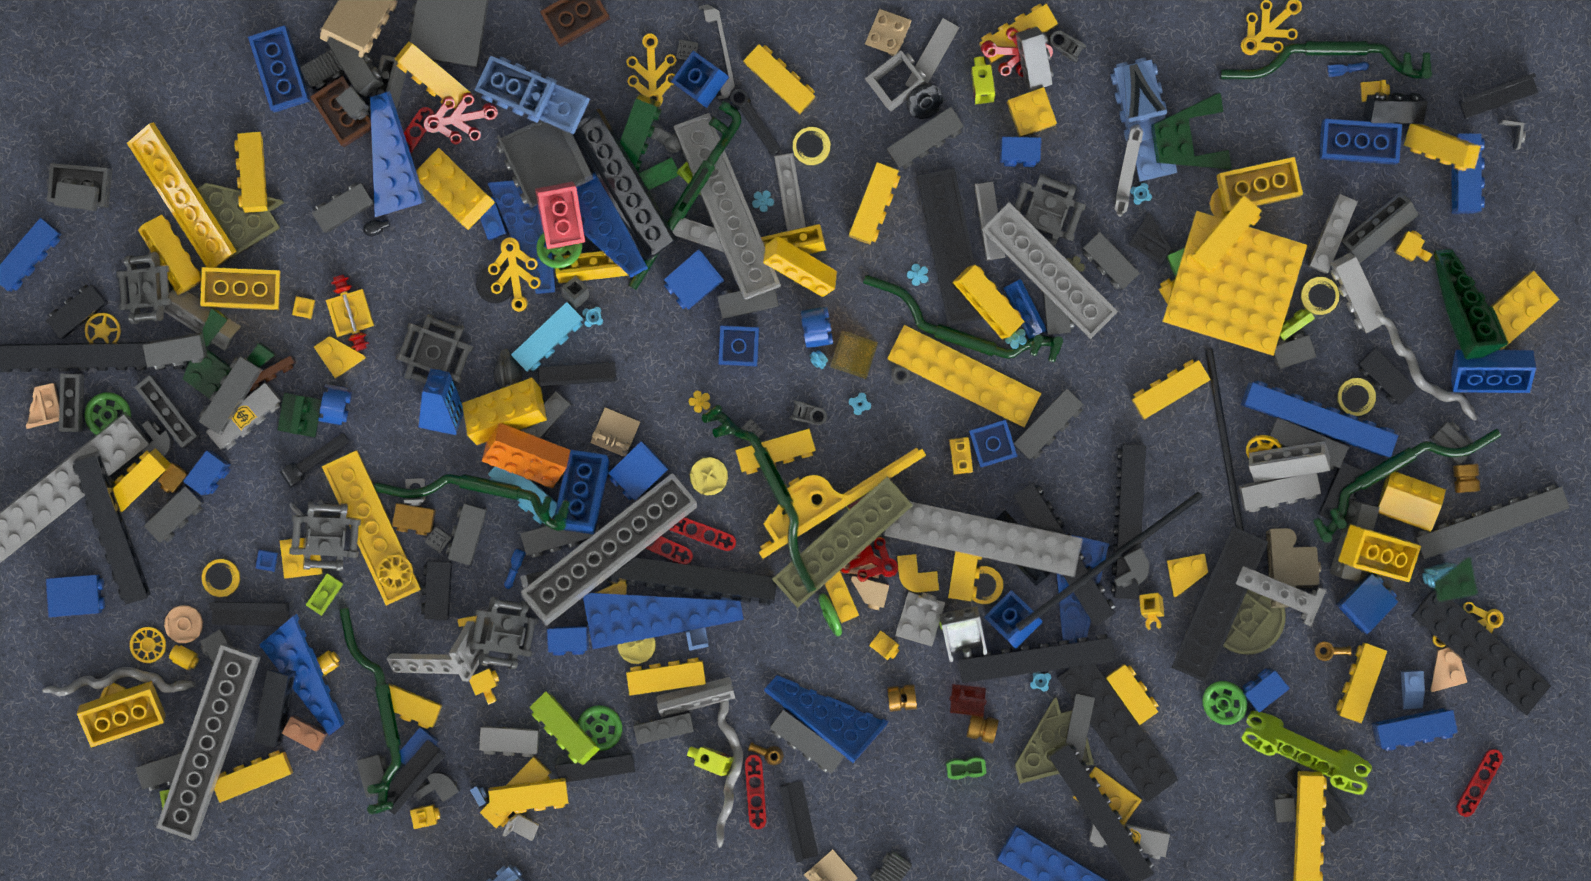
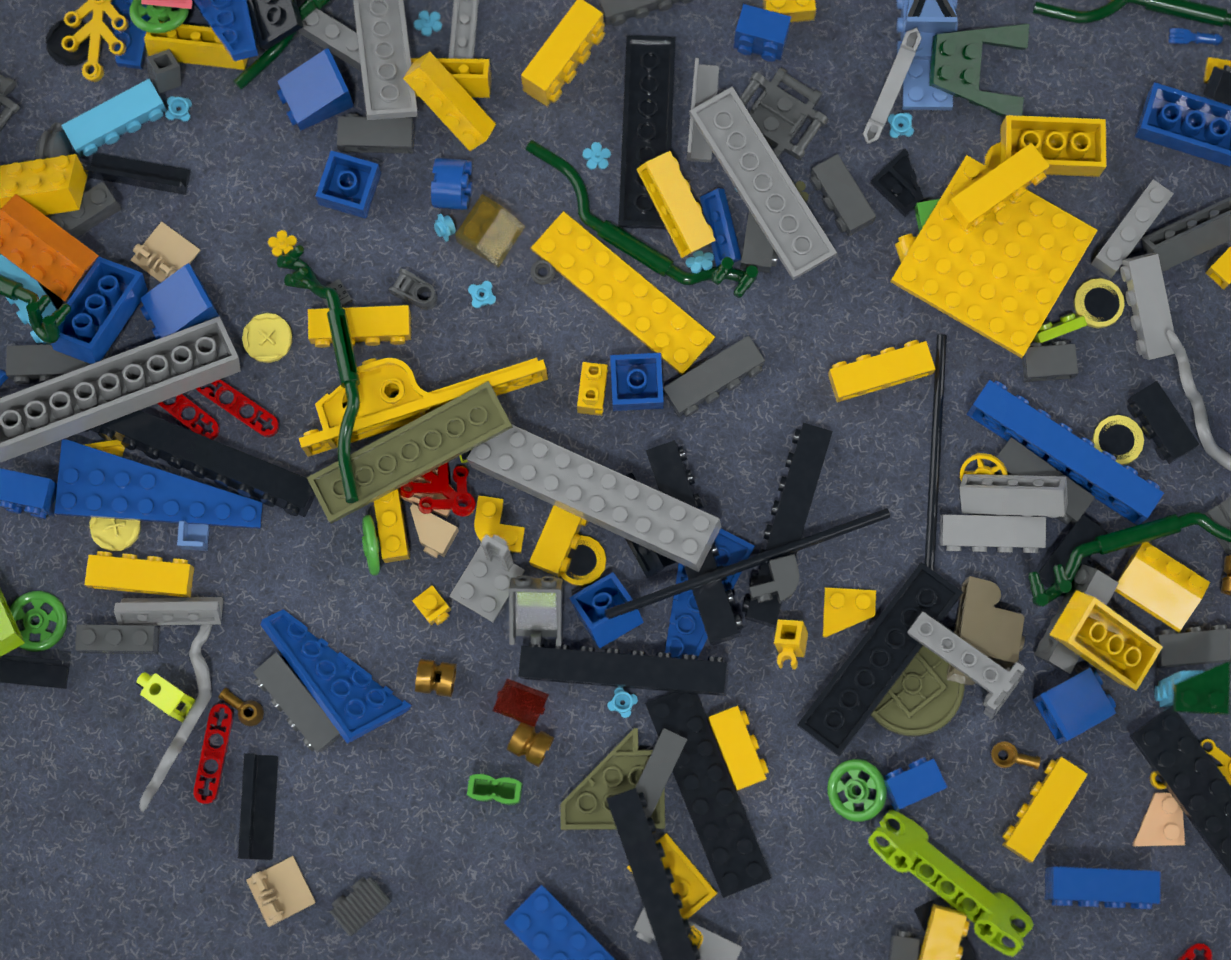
camera: 15 degrees right, 10 degrees down
(1412, 689) = (1110, 835): medium blue slope -> none

